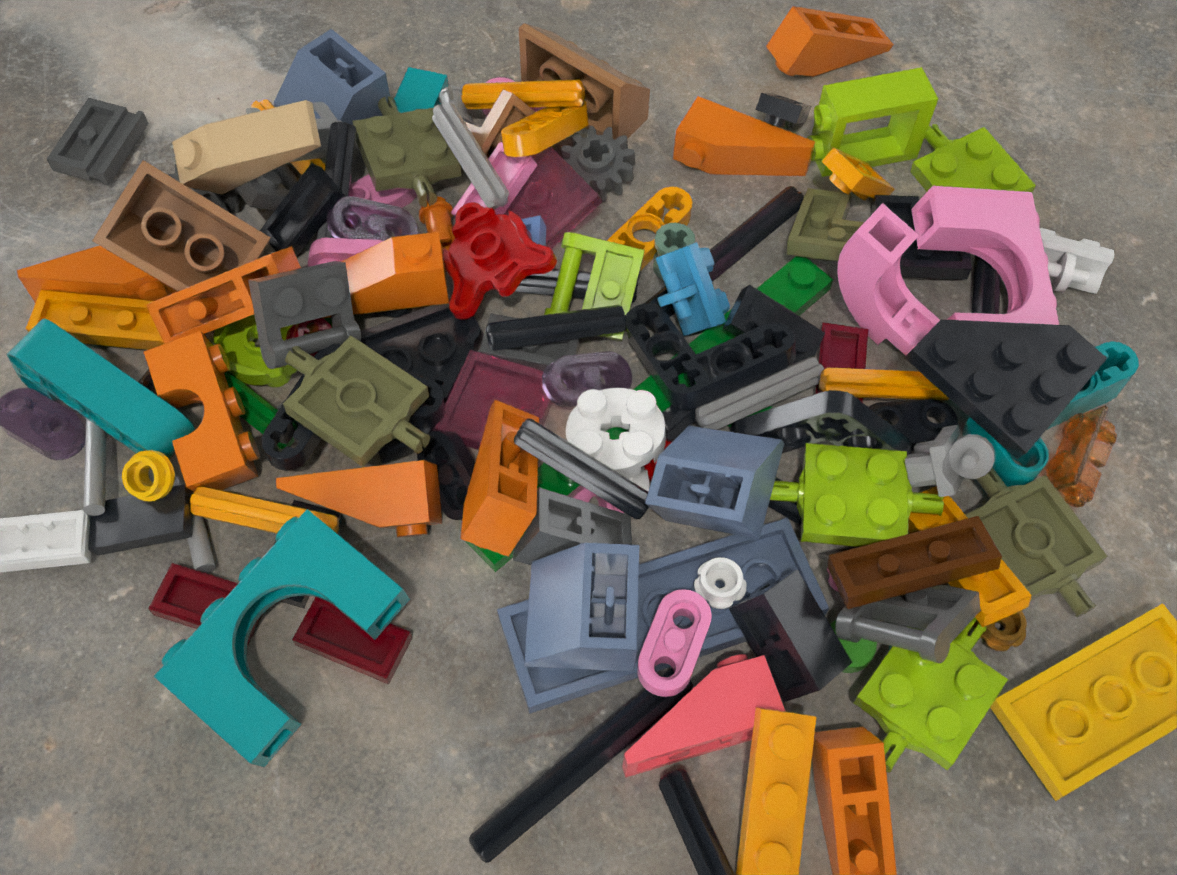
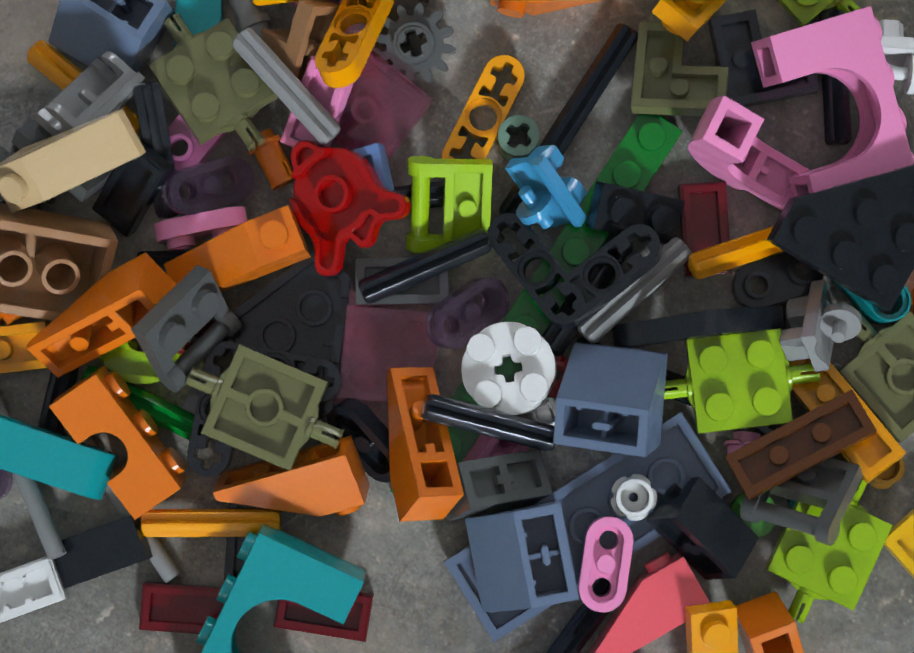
camera: 10 degrees left, 25 degrees up
(136, 475) = (97, 519): yellow plate -> none

